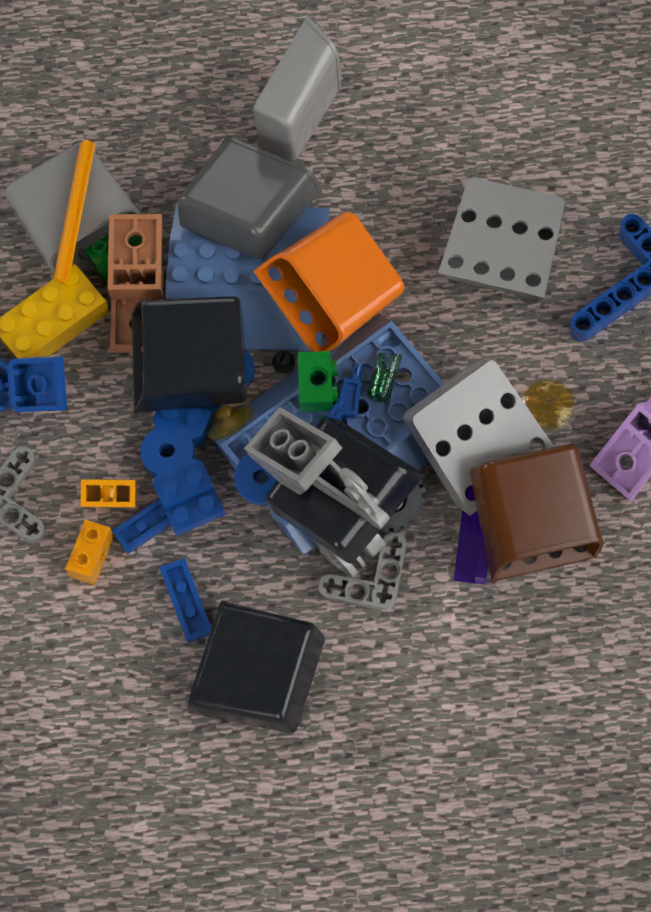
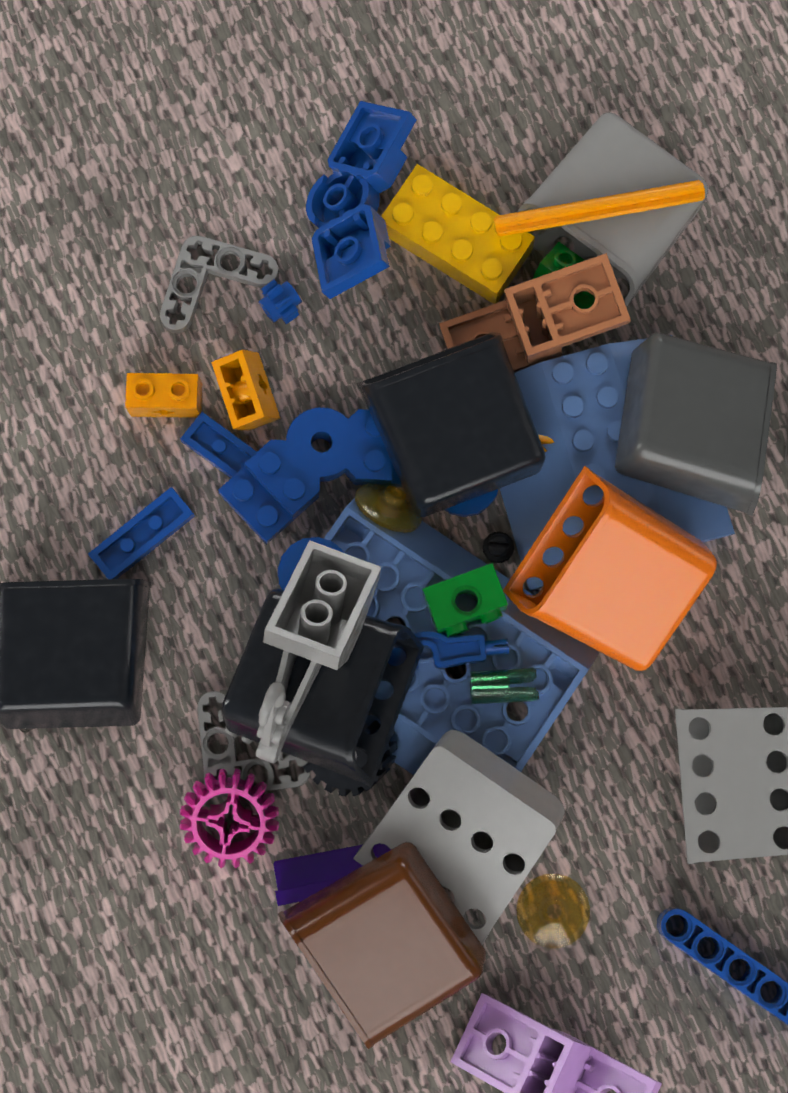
camera: 70 degrees right, 10 degrees up
(51, 452) = (280, 301): none -> blue gear
(426, 577) = (215, 817): none -> dark pink gear

